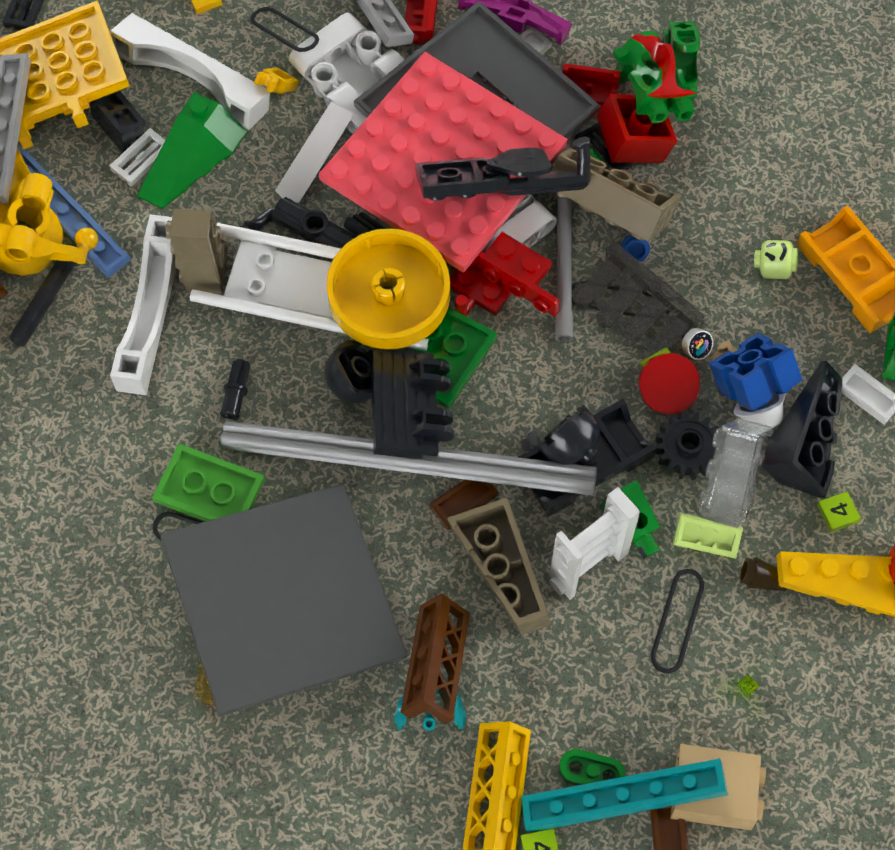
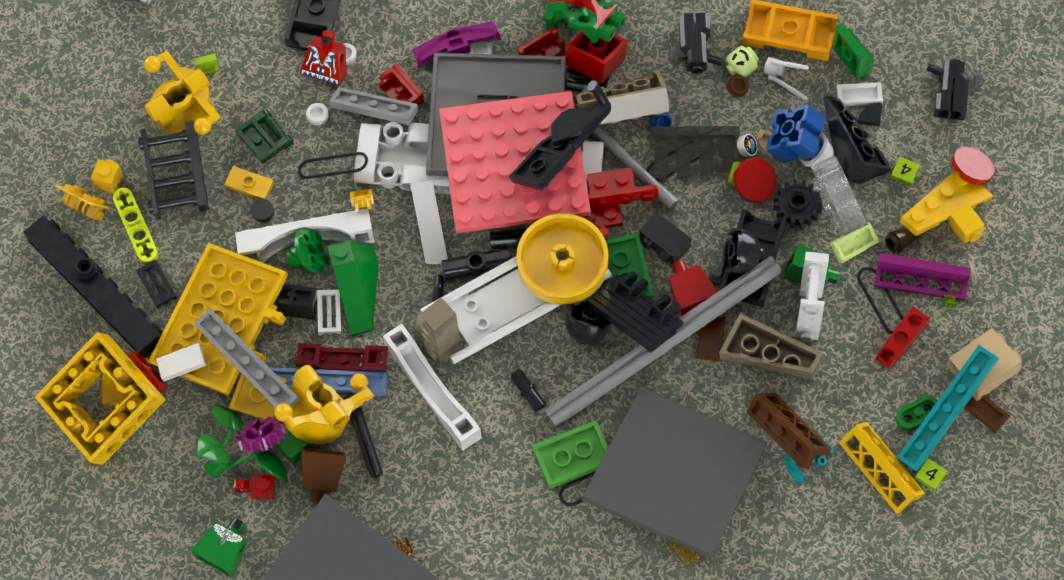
camera: 40 degrees left, 0 degrees up
(101, 205) = (350, 359): none -> dark red slope
(176, 82) = (307, 251): none -> green plate
(184, 18) = (262, 210): none -> black tile
(491, 428) = (689, 286): none -> red torso
(518, 362) = (664, 238): none -> black brick
(656, 678) = (902, 337): none -> red leg
(746, 201) = (693, 47): none -> black piece
(749, 279) = (737, 86): none -> reddish brown plate
(753, 629) = (921, 269): none -> magenta fence
(808, 295) = (776, 67): none -> white plant
(846, 622) = (966, 224): none -> yellow brick
(860, 424) = (871, 115): none -> black tile

